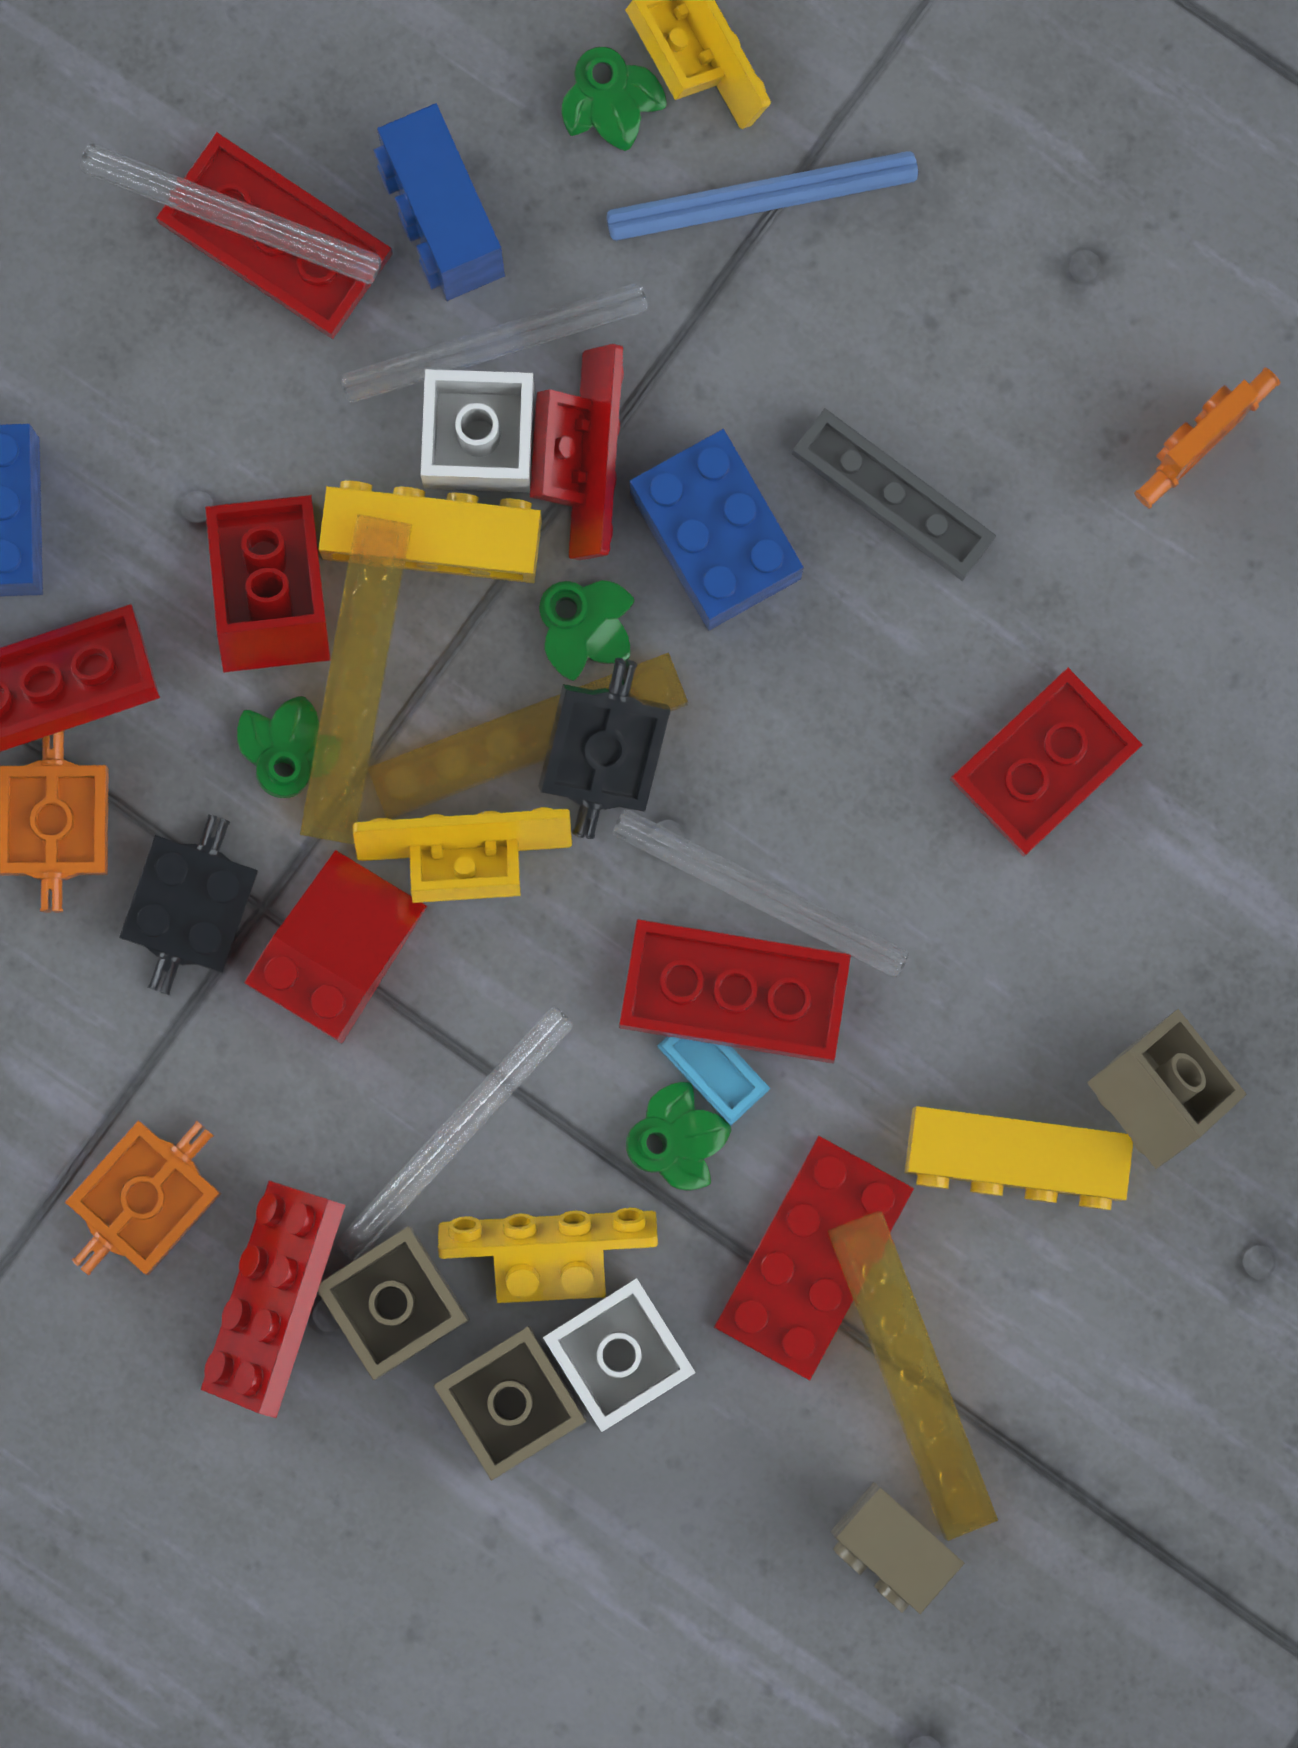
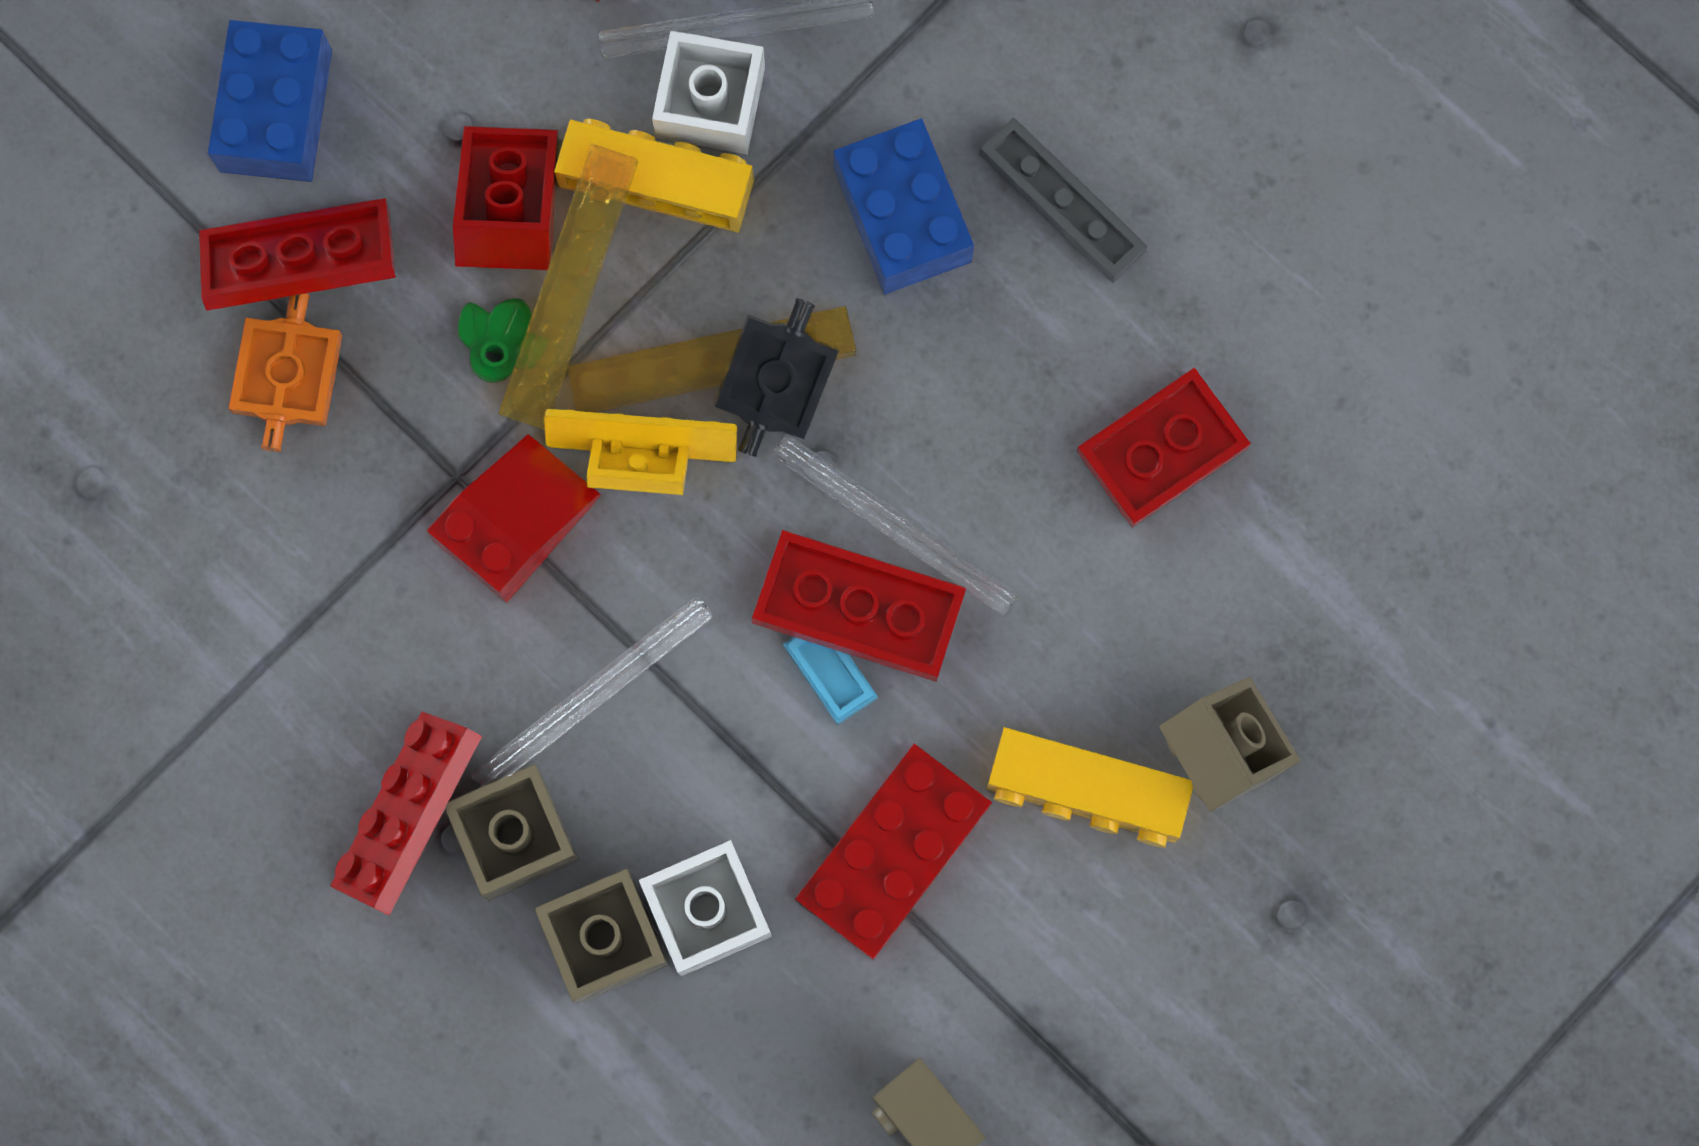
camera: 10 degrees right, 5 degrees down
(143, 1198) = (307, 709): orange plate -> none
(188, 904) = (391, 461): black plate -> none
(548, 1254) = (658, 813): yellow bracket -> none
(579, 448) = (793, 123): red bracket -> none
(591, 631) = (781, 278): green plate -> none
(685, 1135) = (795, 724): green plate -> none
(913, 1375) = (966, 969): clear yellow plate -> none
(1214, 422) = (1333, 189): orange plate -> none

